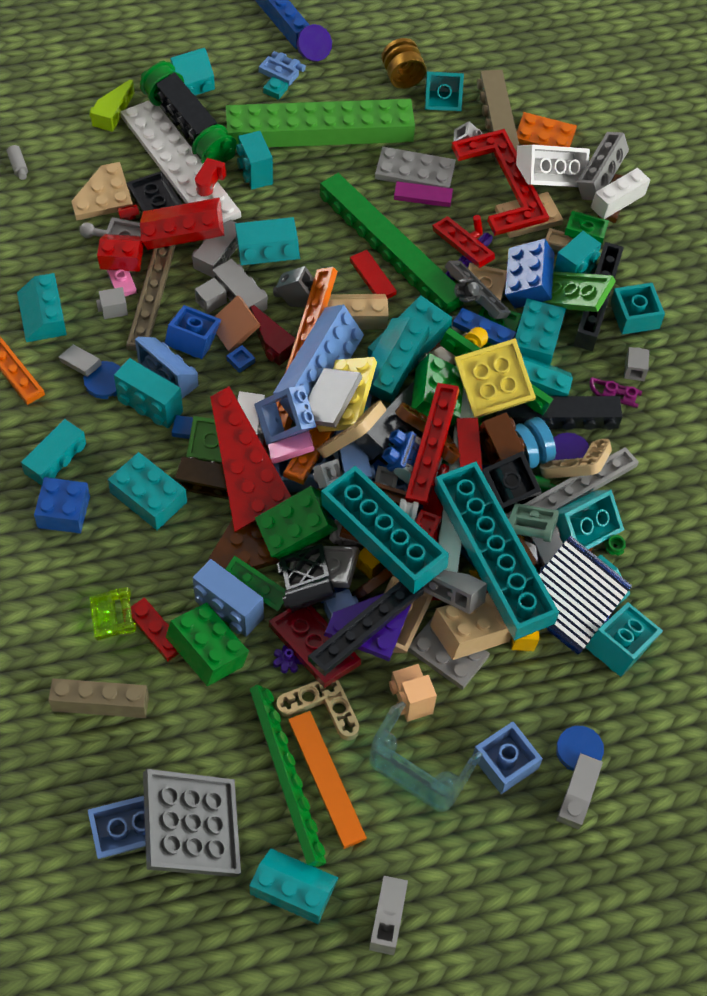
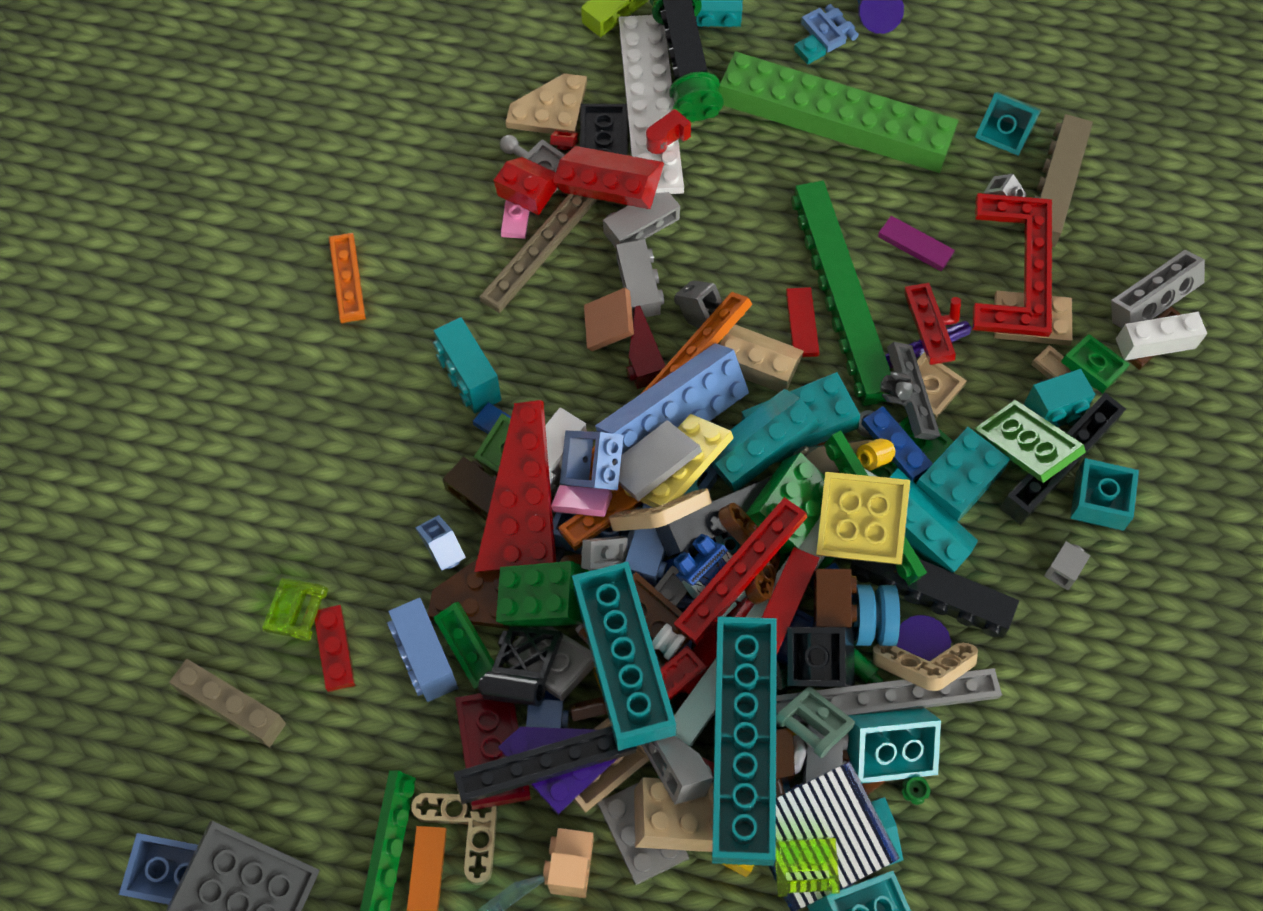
camera: 30 degrees right, 5 degrees up
(17, 161) = (477, 36): light grey cylinder -> none
(41, 308) = (413, 218): teal slope -> none
(54, 452) = (335, 392): teal brick -> none
(62, 505) = (310, 457): blue brick -> none
(80, 360) = (419, 295): light grey tile -> none
(102, 382) = (426, 321): blue tile -> none
(112, 303) = (489, 241): light grey brick -> none
(147, 490) = (408, 480): teal brick -> none
(162, 361) = (507, 339): medium blue slope -> none
(192, 332) = (556, 310): blue slope -> none
(196, 523) = (441, 543): none -> slope
(207, 644) = (372, 694): green brick -> none
(211, 295) = (602, 274): light grey brick -> none
(240, 358) = (595, 364): blue plate -> none
(255, 160) = (734, 129): teal brick -> none
(267, 241) = (695, 234): teal slope -> none
(286, 660) = (451, 755): dark purple plant -> none
(403, 63) = (974, 72): pearl gold wheel -> none
(414, 168) = (923, 207): light grey plate -> none
(529, 273) = (989, 395): blue brick -> none
(544, 131) = (1108, 222): orange plate -> none
(551, 164) = (1089, 267): white slope -> none
(574, 608) = (805, 856): none -> clear neon green plate
(613, 388) = (1021, 584): magenta piece -> none

